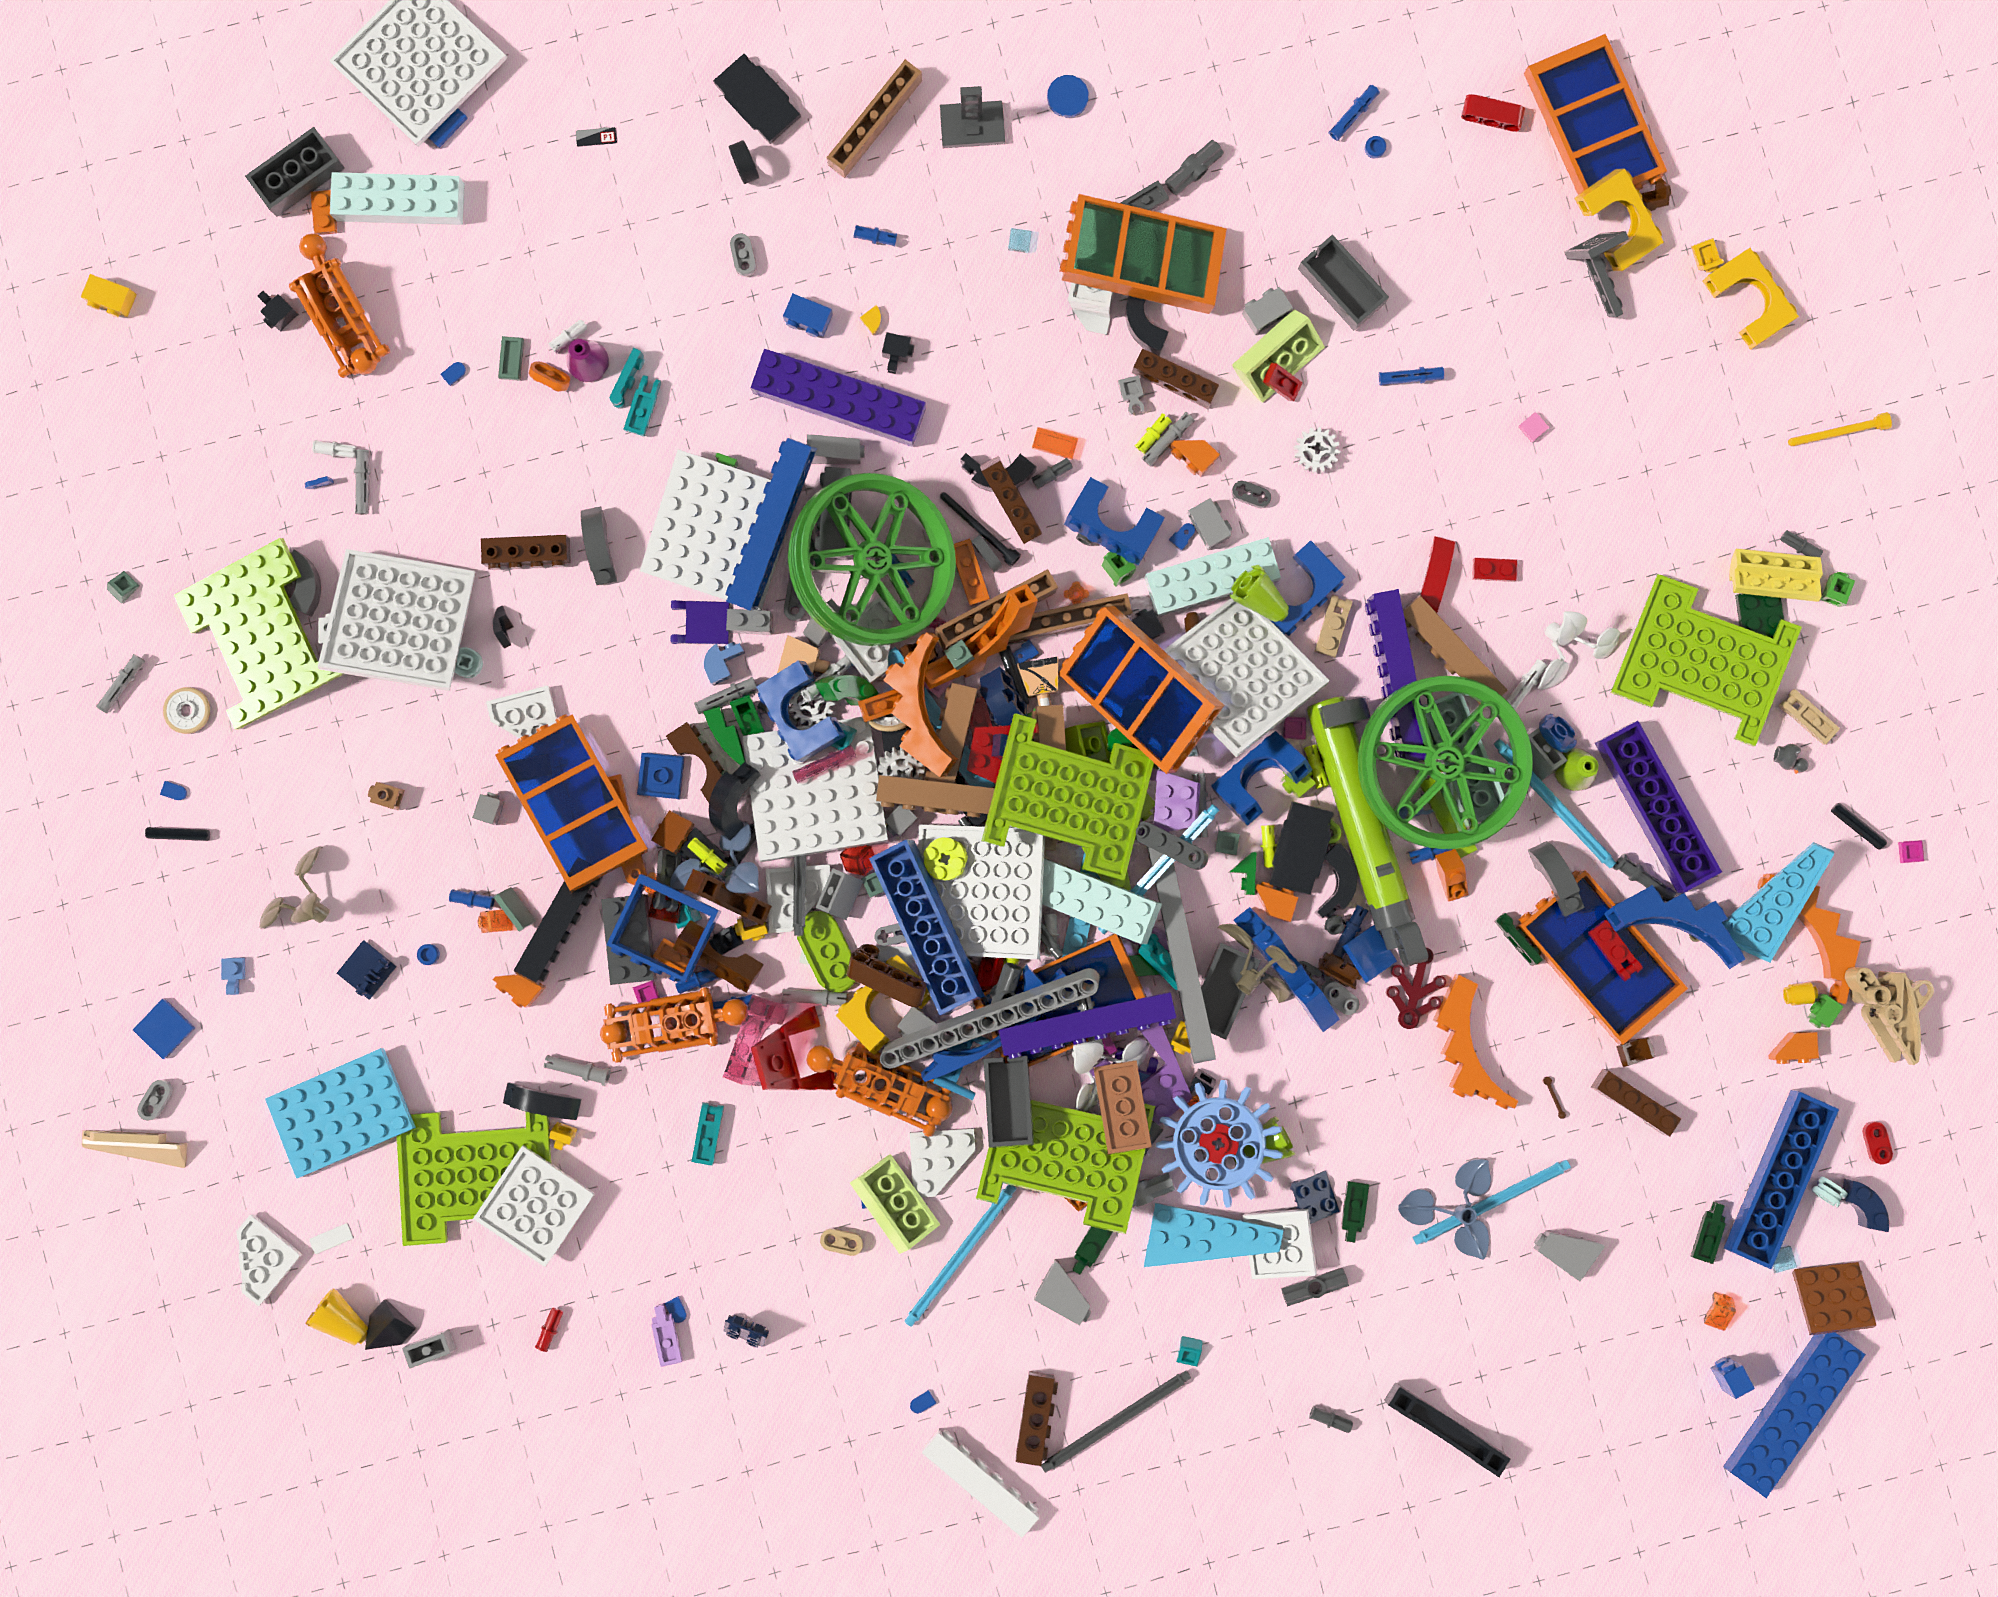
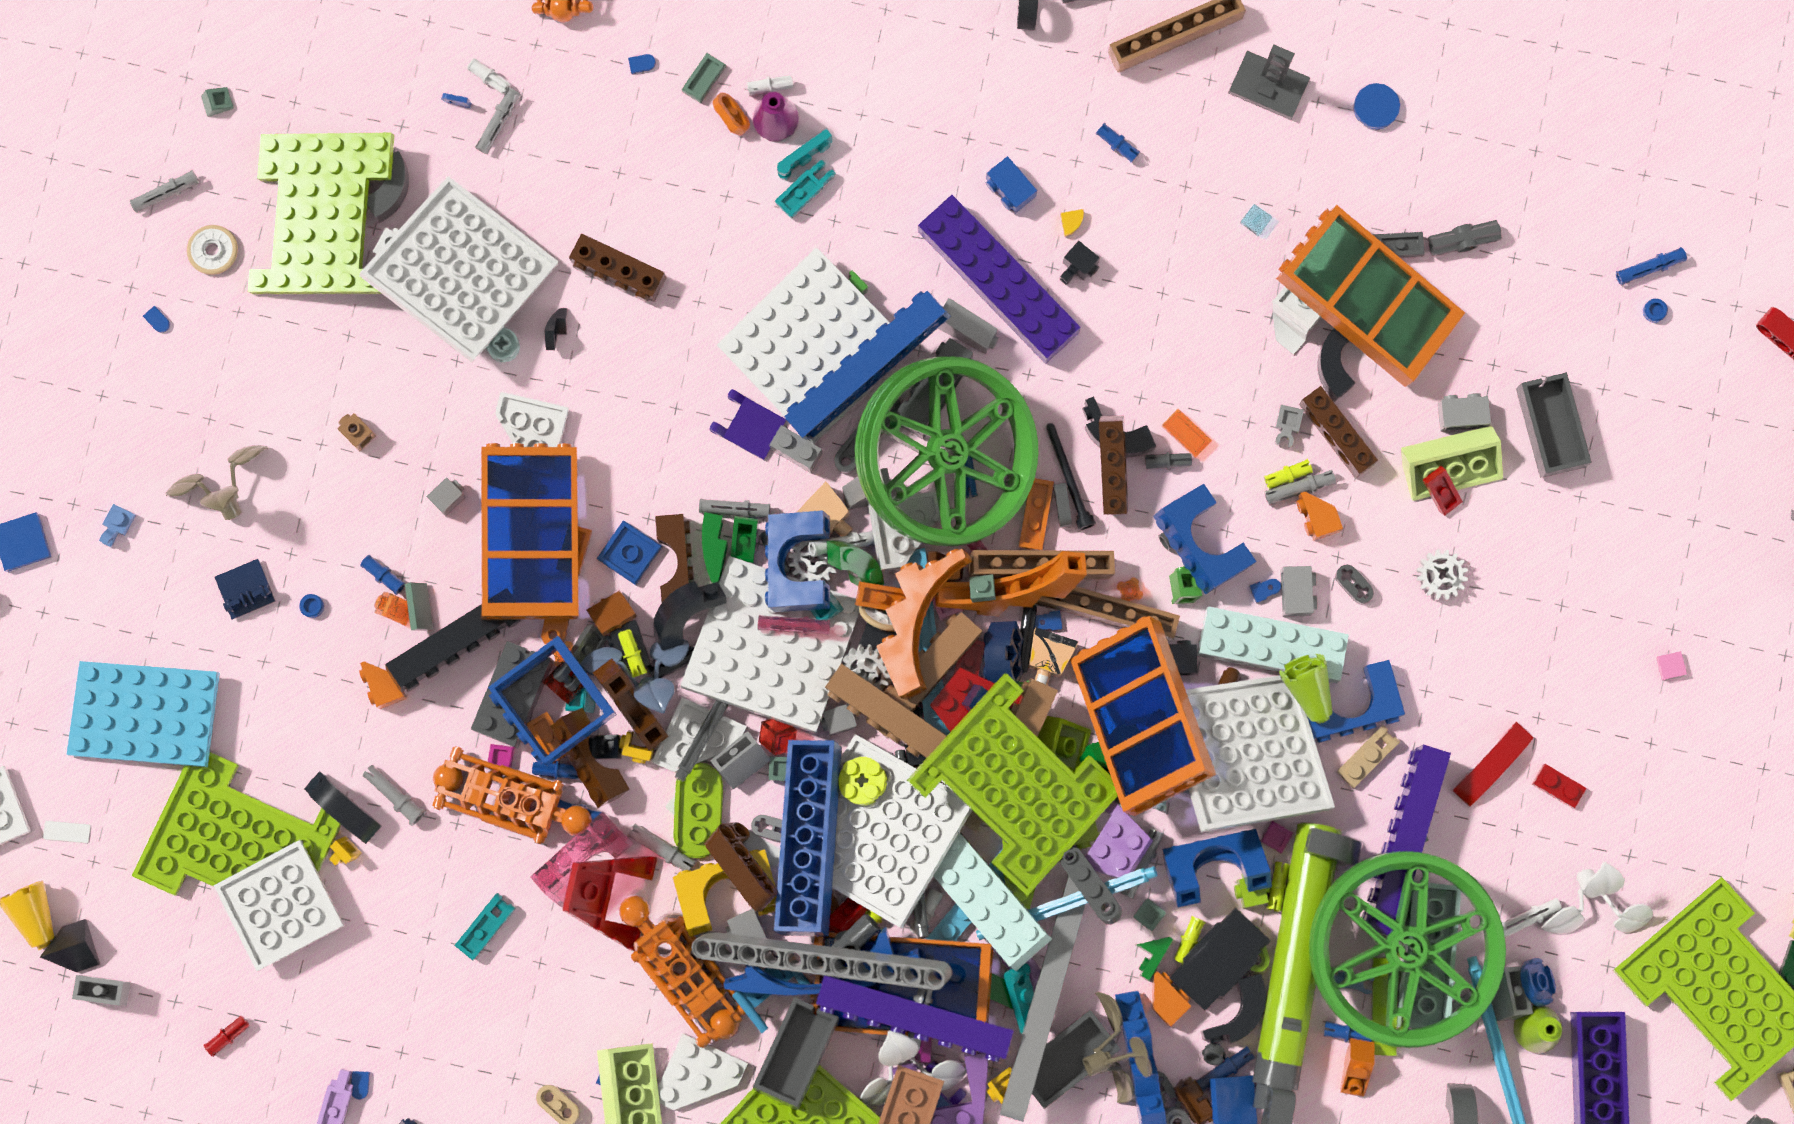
camera: 30 degrees right, 5 degrees down
(177, 834) = (138, 362): black axle -> none
(596, 545) = (688, 299): dark grey arch -> none
(715, 661) = (741, 472): medium blue brick -> none
(744, 255) = (979, 96): light grey plate -> none
(1435, 373) = (1553, 542): blue pin -> none
(1448, 645) = (1472, 836): medium nougat brick -> none

